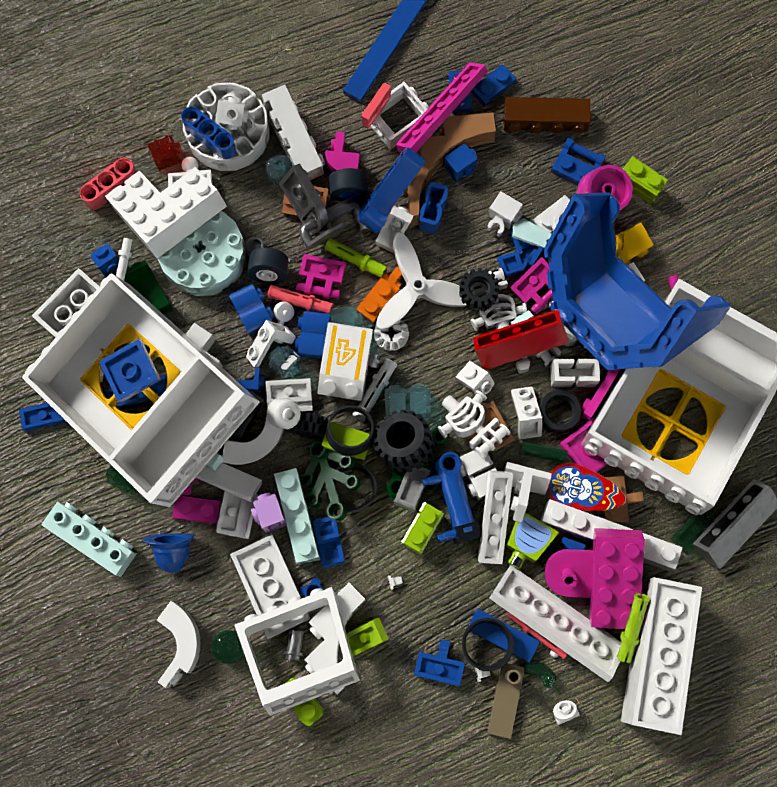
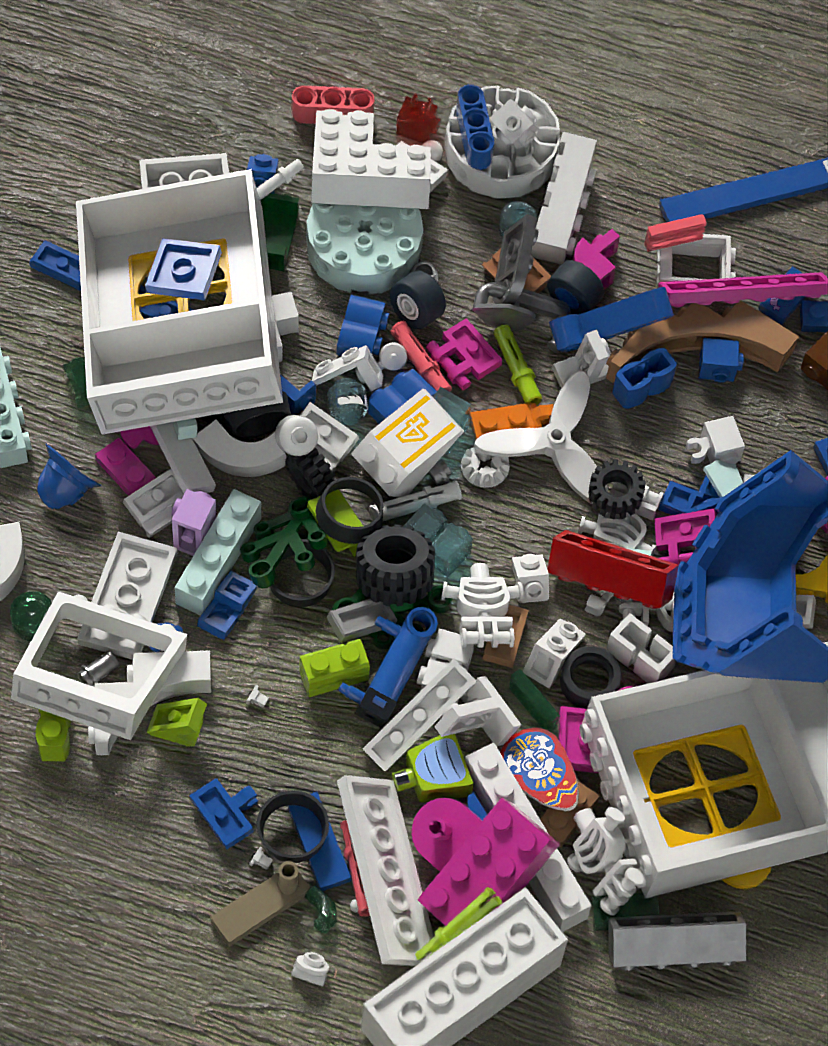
camera: 35 degrees right, 15 degrees down
(660, 511) = (605, 843): none -> white piece

